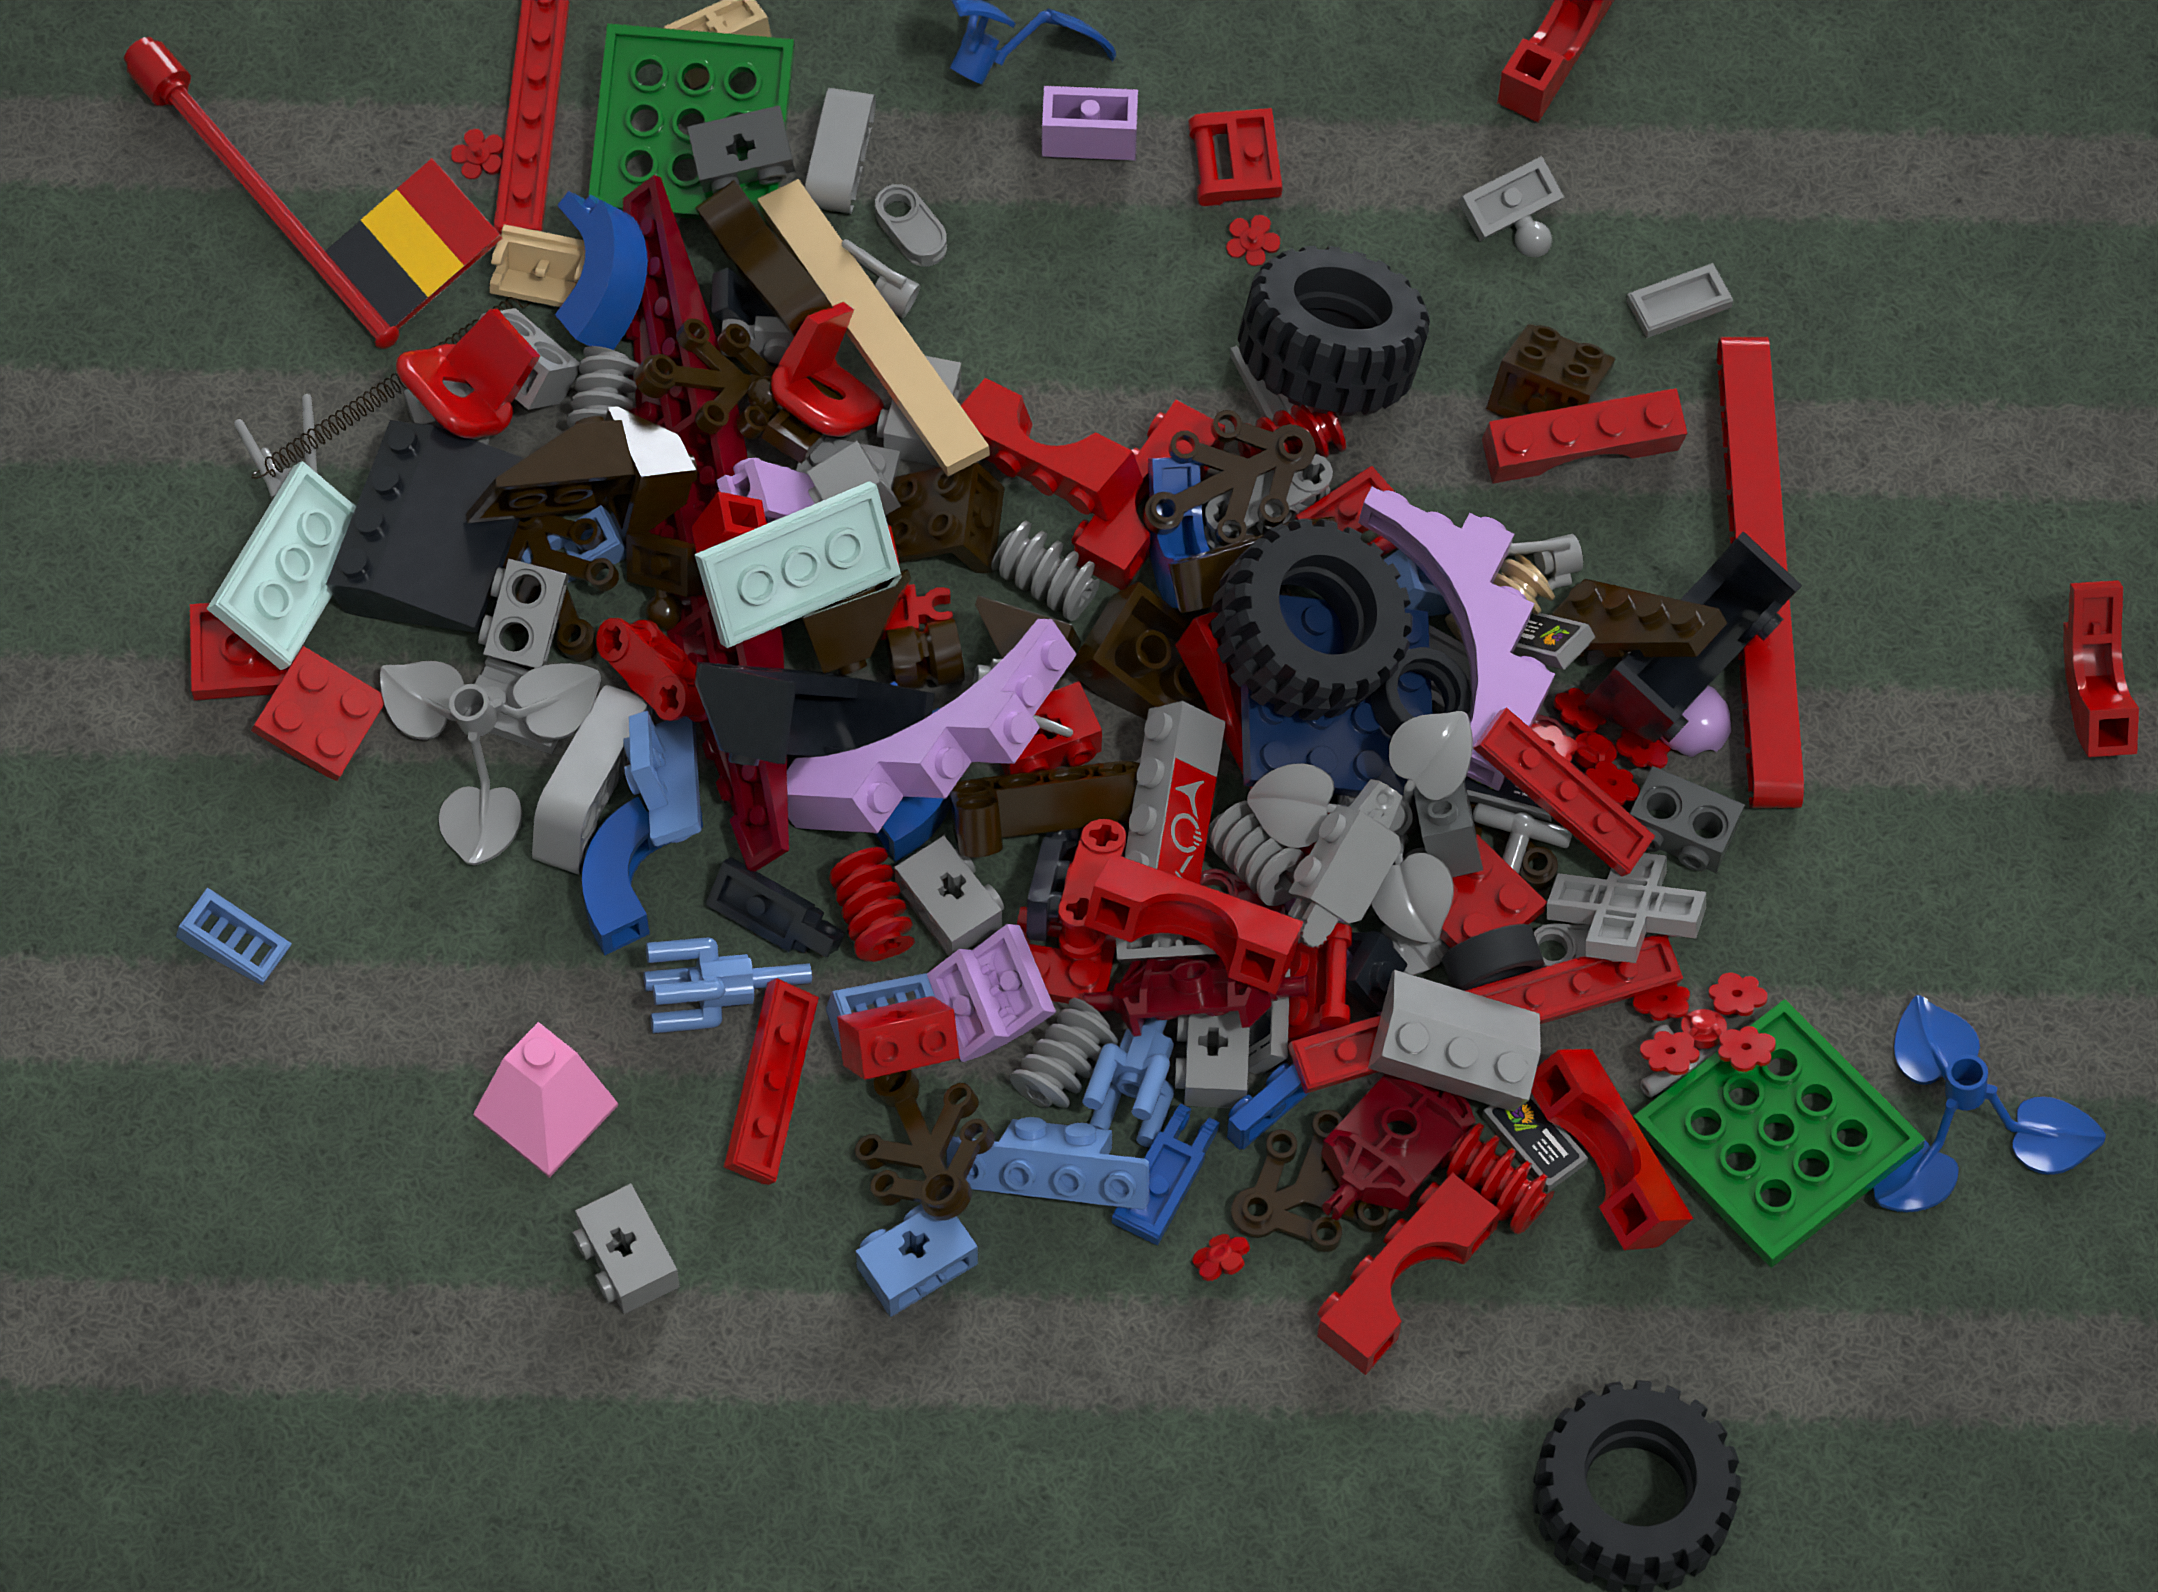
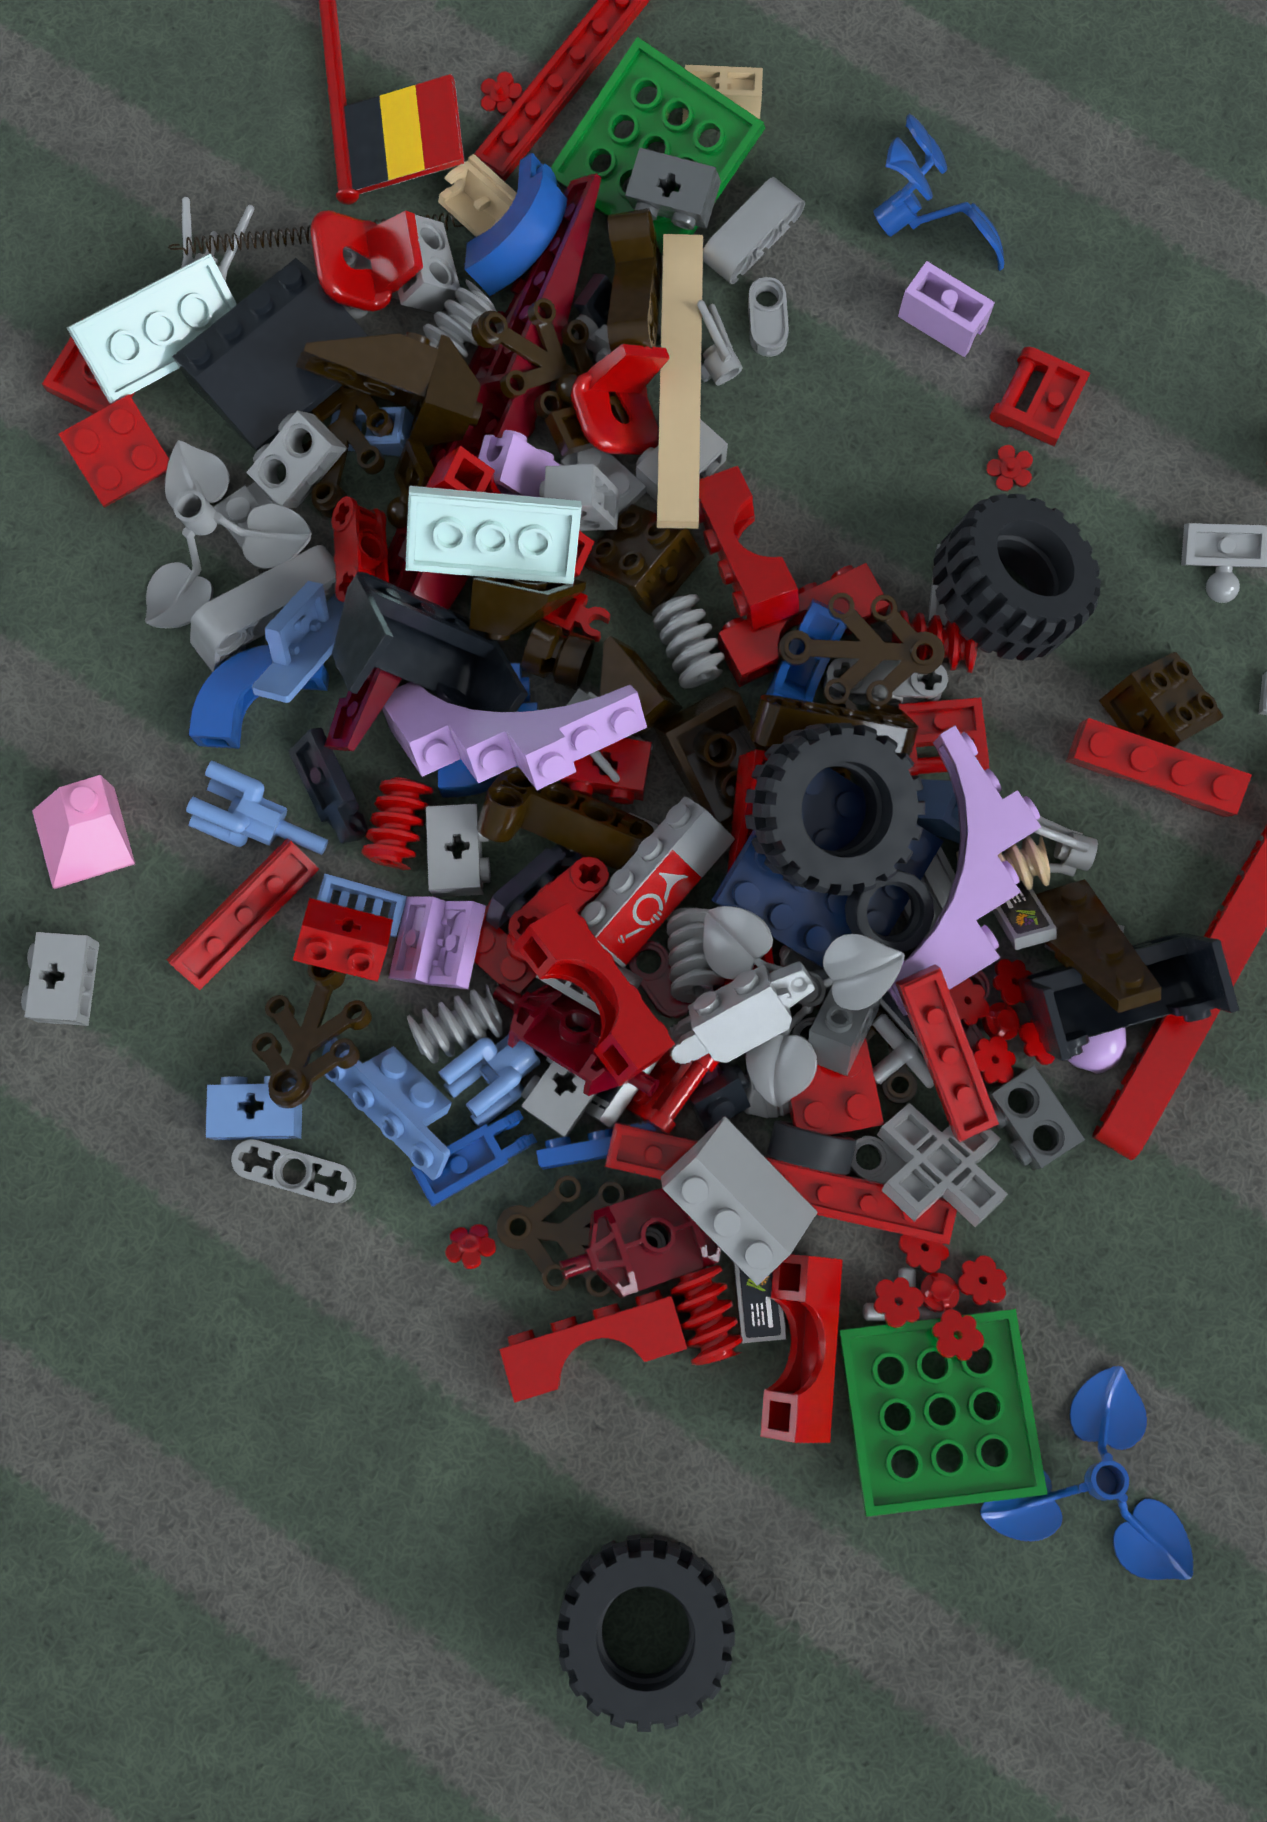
camera: 35 degrees right, 15 degrees up
(1004, 1275) = (267, 1151): none -> light grey beam

